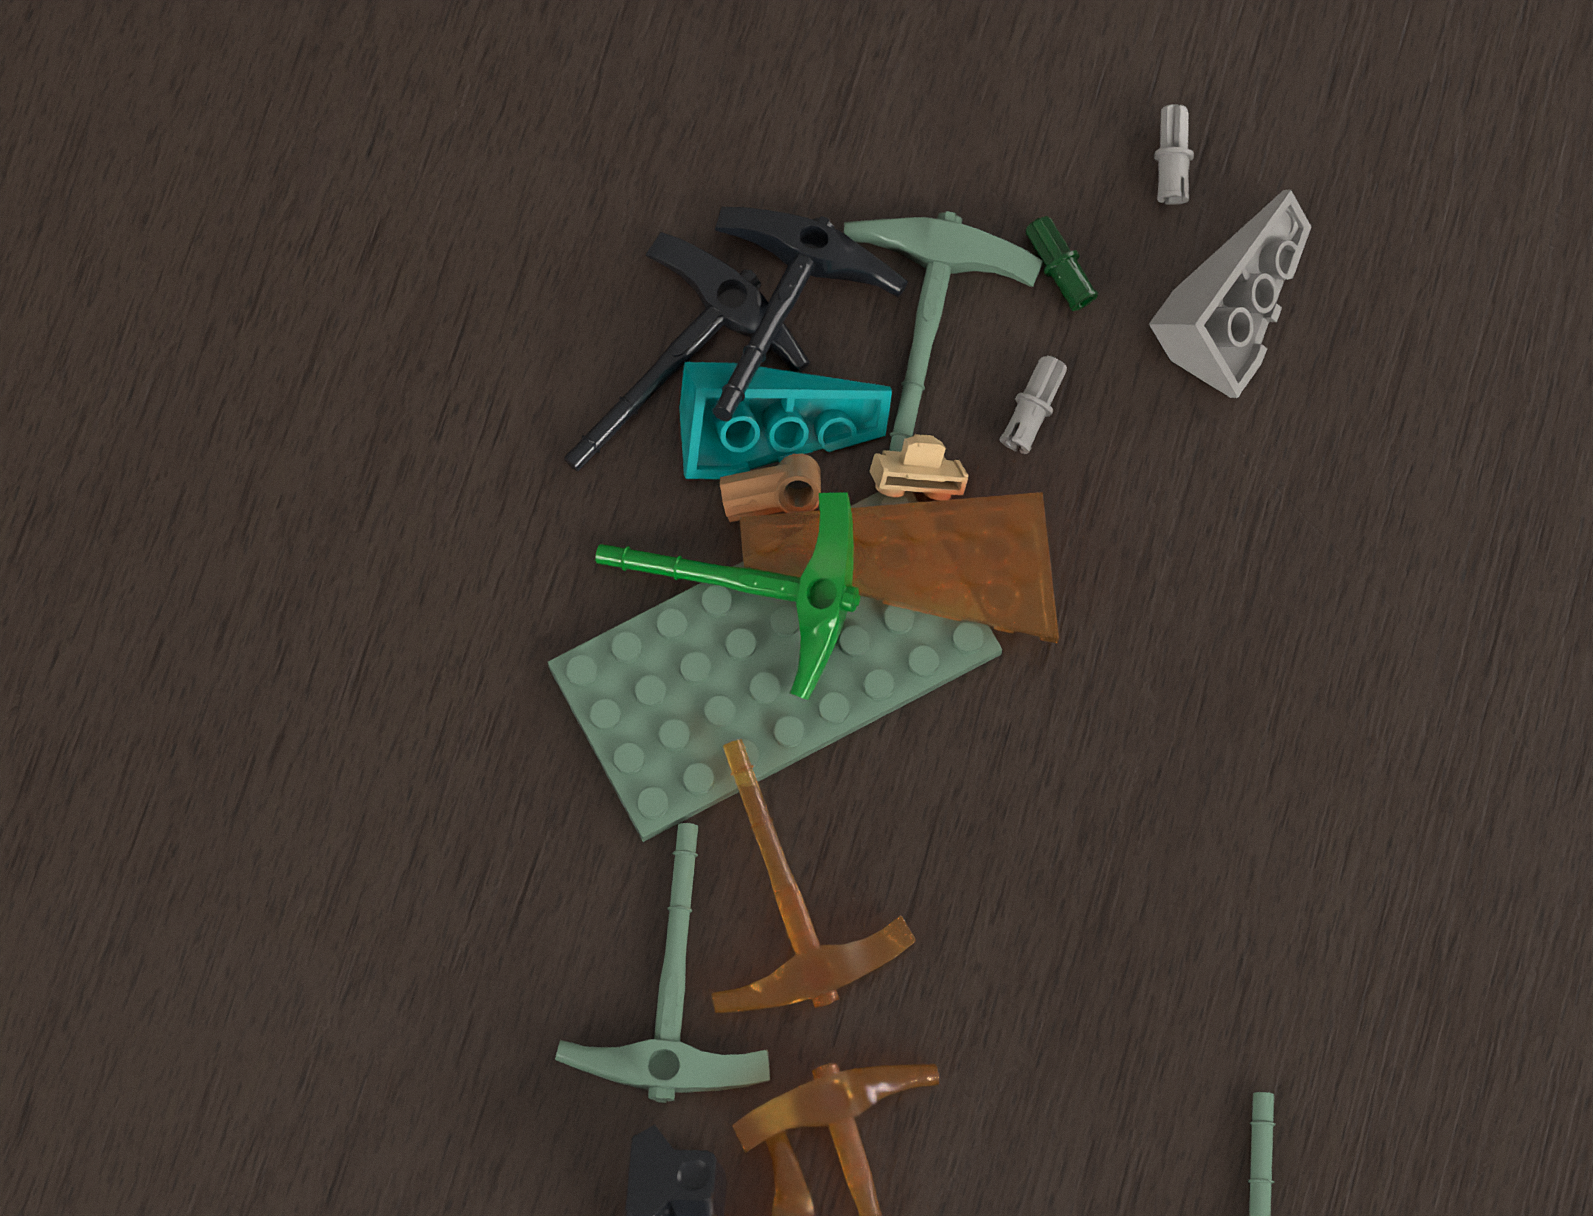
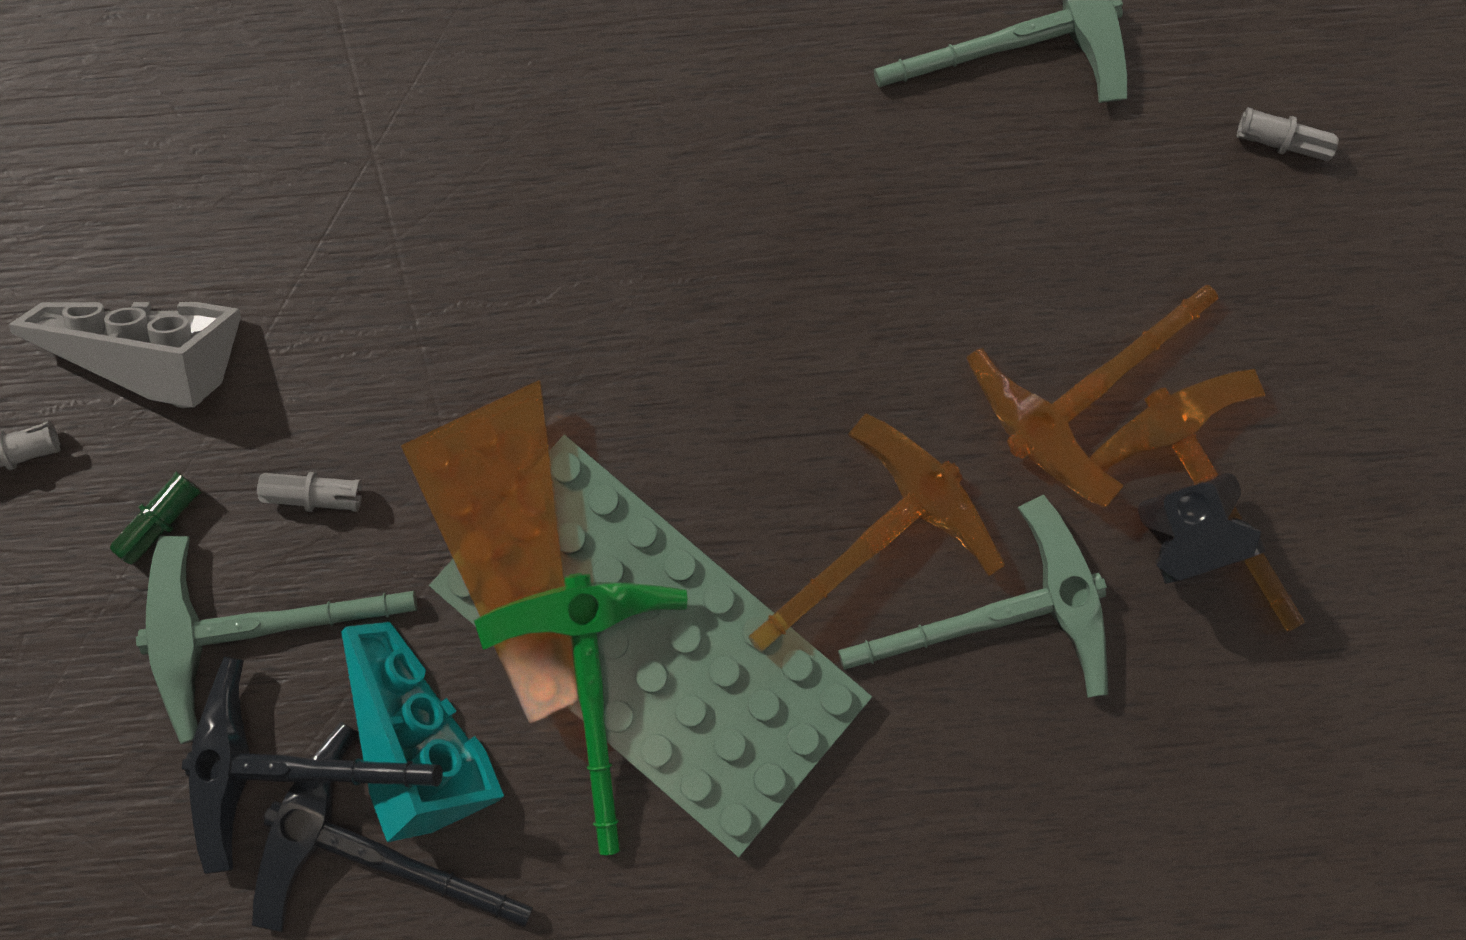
camera: 110 degrees left, 5 degrees up
(767, 489) = (479, 691): medium nougat piece -> none
(919, 469) = (418, 572): tan piece -> none

